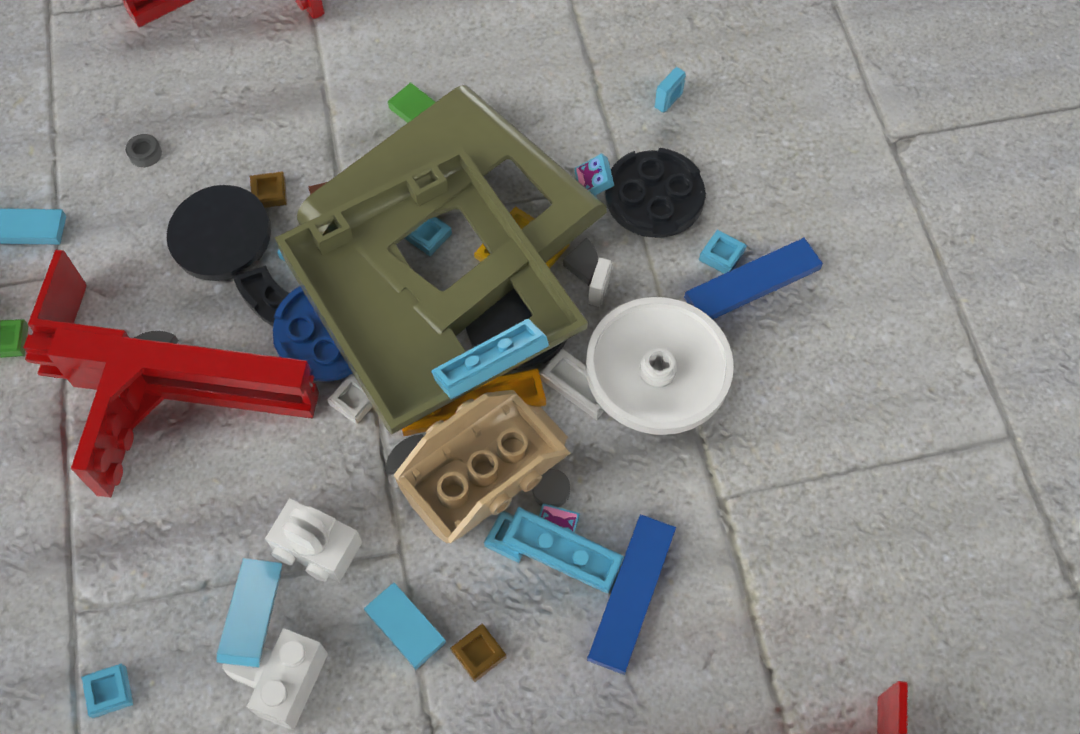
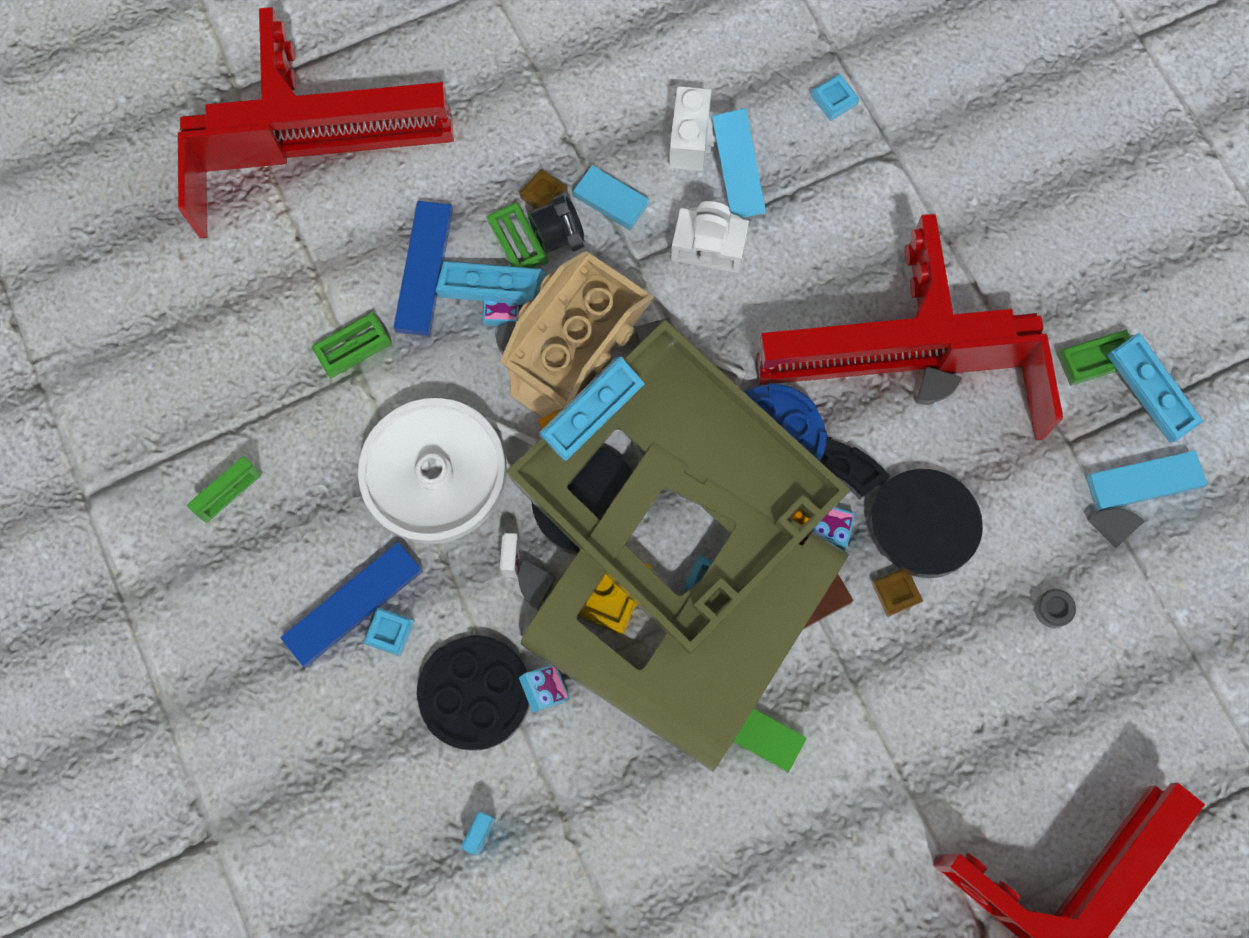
camera: 170 degrees right, 10 degrees up
(56, 197) = (1116, 524): none -> dark grey tile
(473, 592) = (557, 224): none -> black piece
(529, 634) = (529, 262): none -> bright green tile
(724, 540) = (356, 356): none -> bright green tile
(868, 399) = (224, 489): none -> bright green tile

